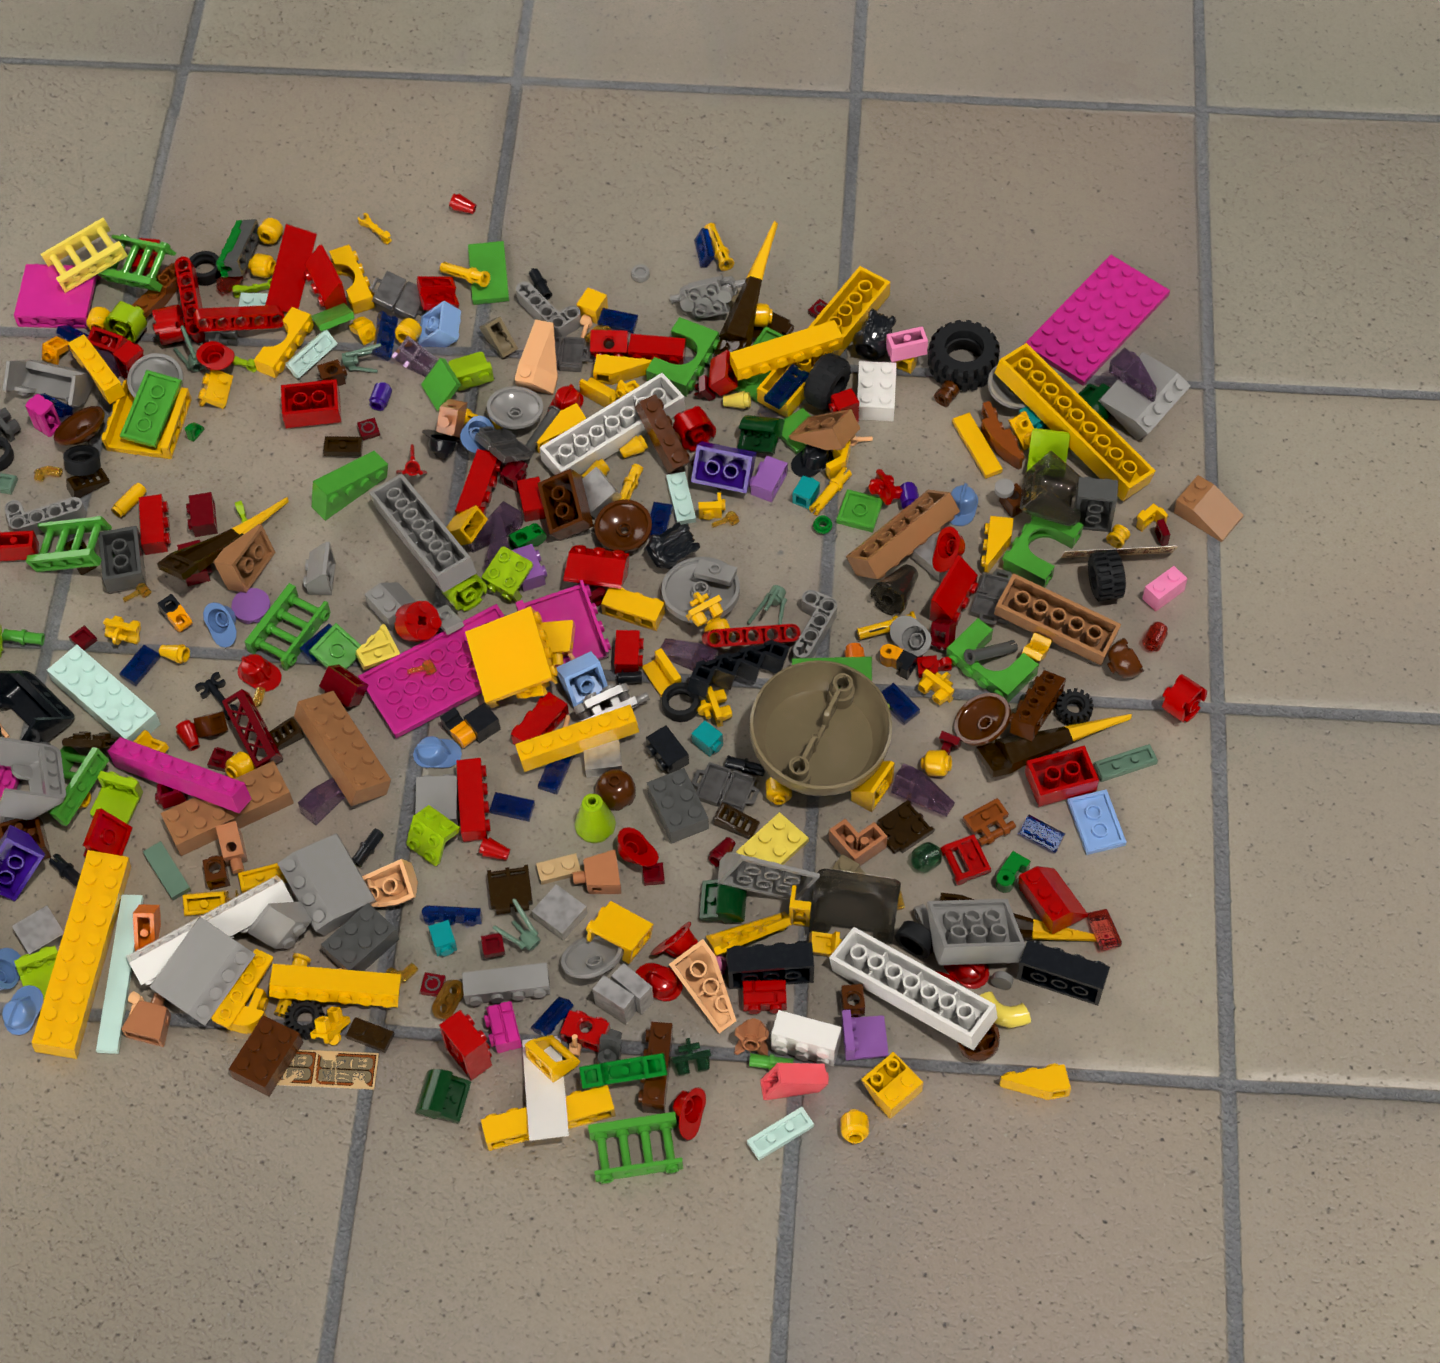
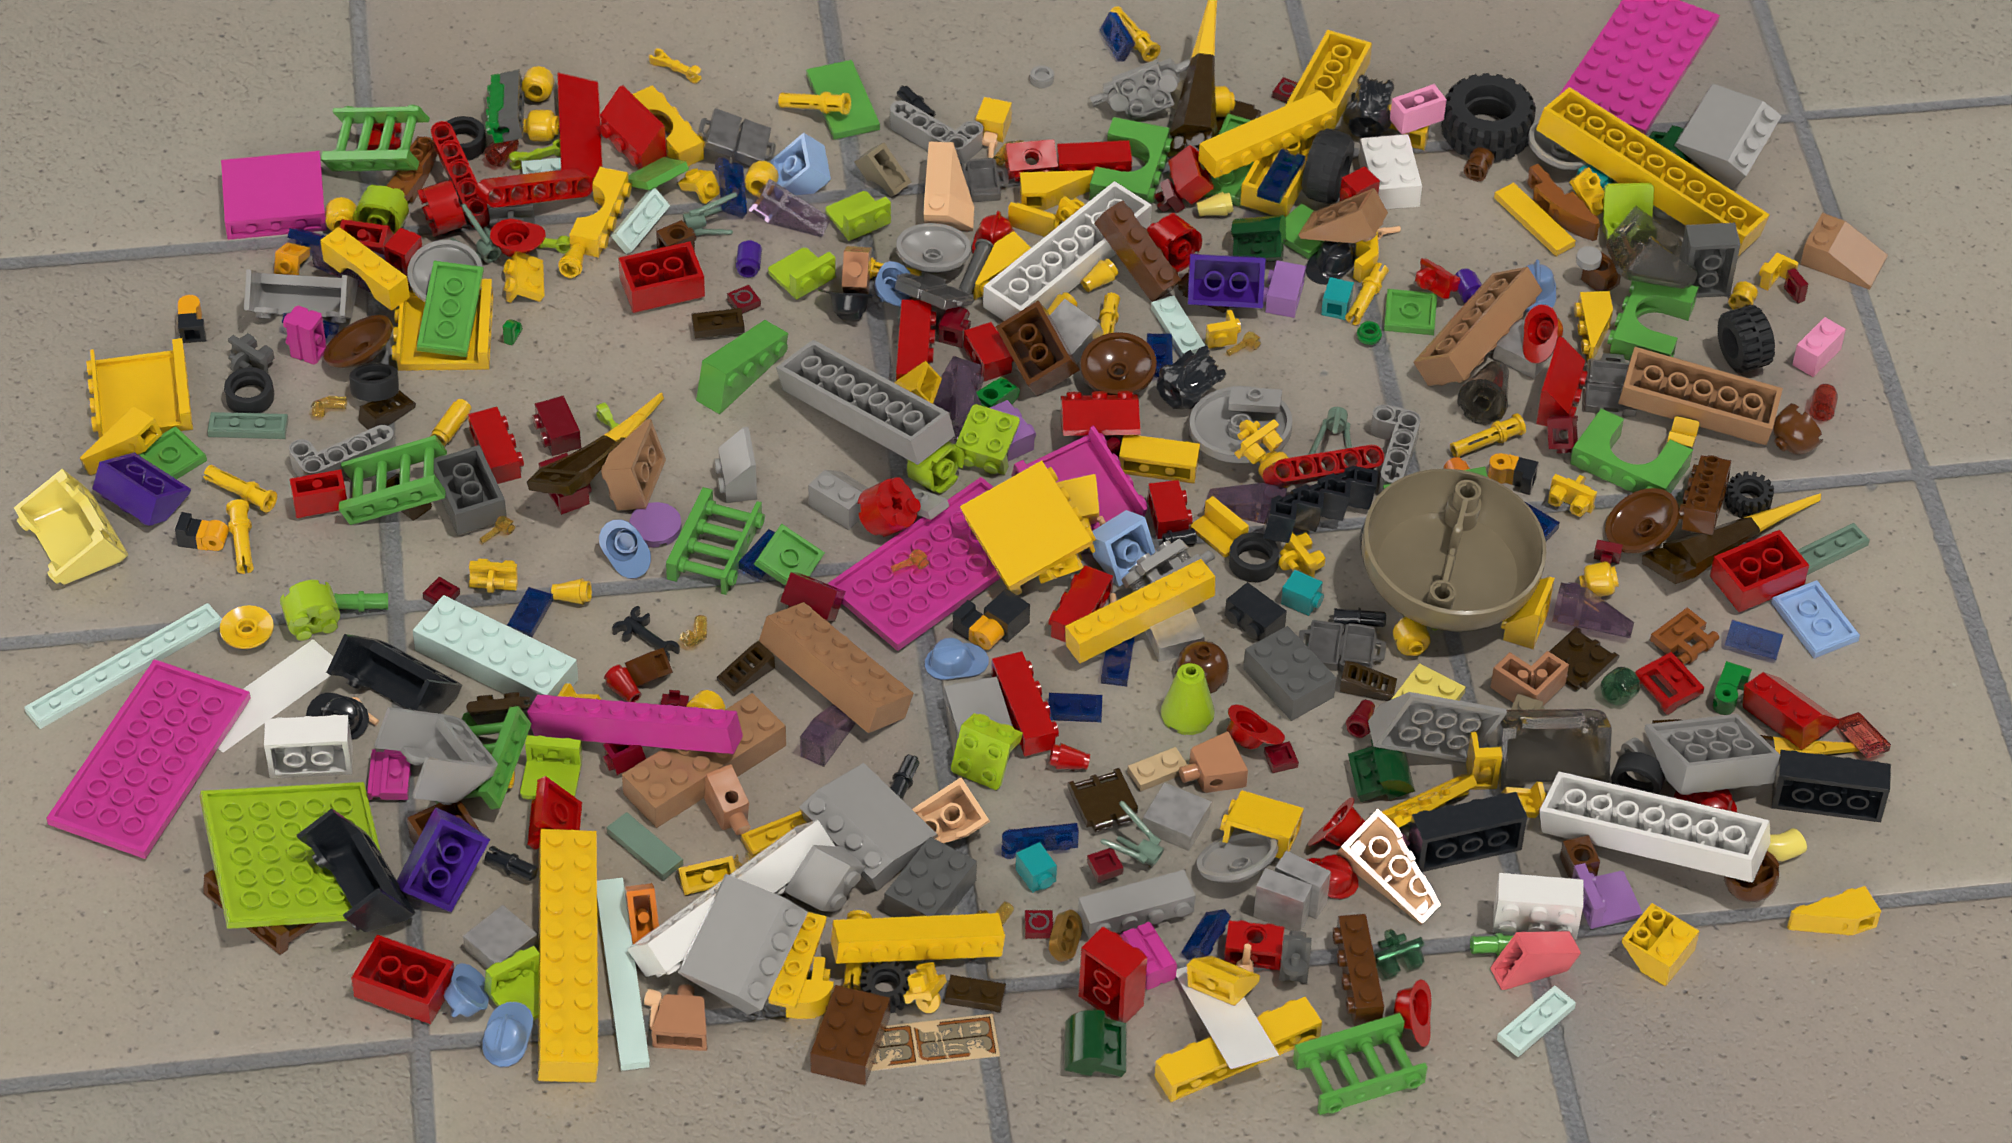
camera: 15 degrees left, 10 degrees down
(91, 266) = (316, 150): light yellow fence -> none
(174, 613) = (558, 545): leg -> none
(218, 879) = (714, 836): reddish brown brick -> none
(253, 380) = (572, 262): none -> yellow cone
(259, 672) = (689, 599): red piece -> none
(259, 727) = (717, 657): dark red fence -> none
(377, 649) = (842, 550): light yellow wing -> none
(412, 466) = (823, 330): red plant -> none
(416, 412) = (803, 271): none -> lime bracket
(436, 290) = (782, 126): red slope -> none
(440, 383) = (827, 230): bright green tile -> none
(462, 204) = (783, 23): red cone -> none
(618, 320) = (1031, 131): clear blue plate -> none
(623, 1070) = (1325, 972): green slope -> none
(752, 1037) = (1468, 917): nougat brick -> none
(764, 996) = (1467, 870): red brick -> none
(854, 1126) = (1627, 997): yellow head -> none
(910, 635) = (1523, 438): light grey piece -> none
(933, 665) = (1548, 470): red plate -> none
(990, 651) = (1609, 449): dark grey pin -> none
(1002, 980) = (1757, 807): light grey tile -> none
(1128, 551) = (1769, 309): sticker -> none
(1131, 371) = (1711, 106): clear purple slope -> none
(1183, 698) = (1882, 463): red brick -> none

